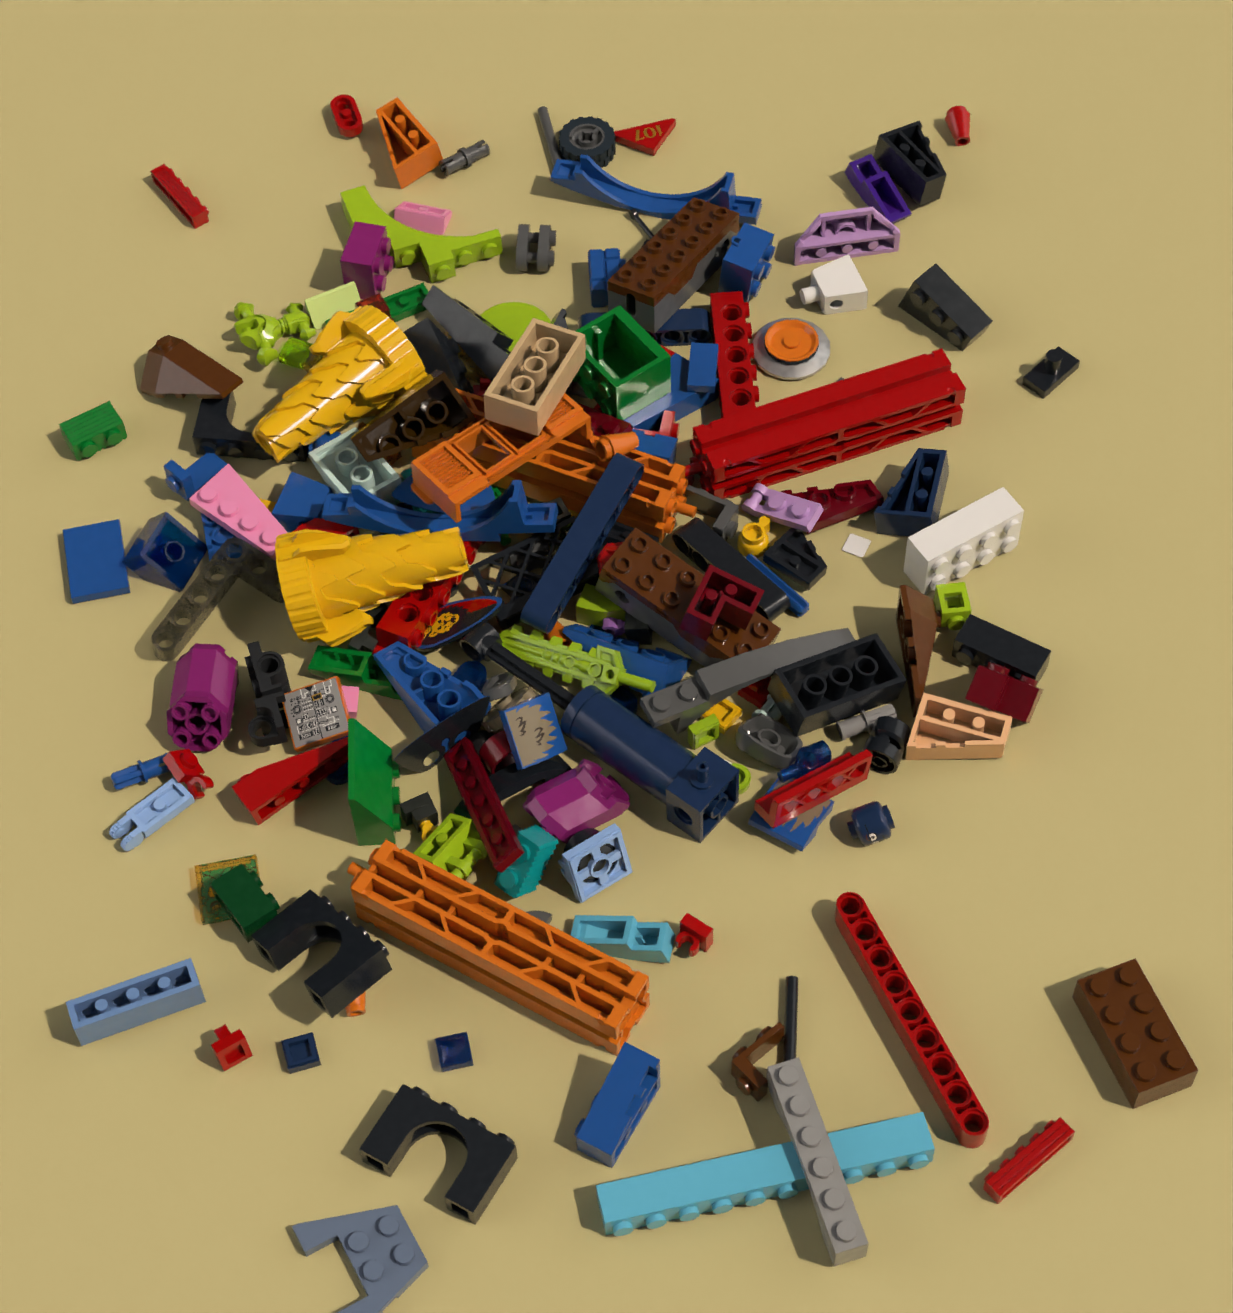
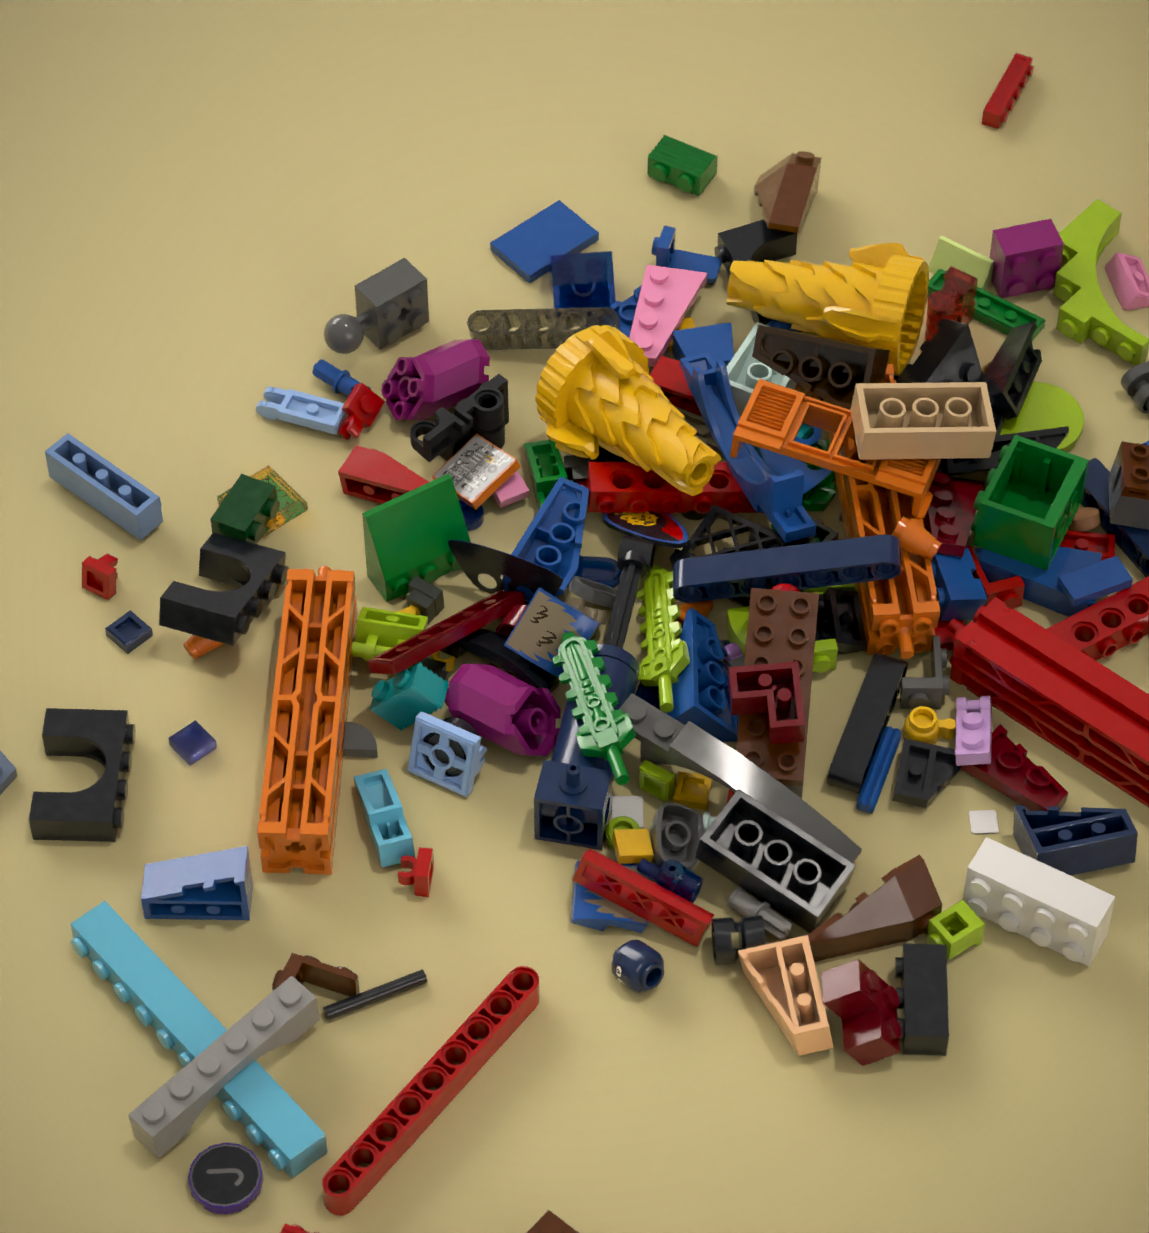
camera: 60 degrees right, 5 degrees down
(97, 703) = (386, 309): none -> dark grey brick
(263, 331) = (888, 225): lime piece -> none
(667, 732) = (604, 729): none -> bar
(760, 774) = (632, 845): none -> yellow tile
(911, 1211) = (225, 1178): none -> black tile

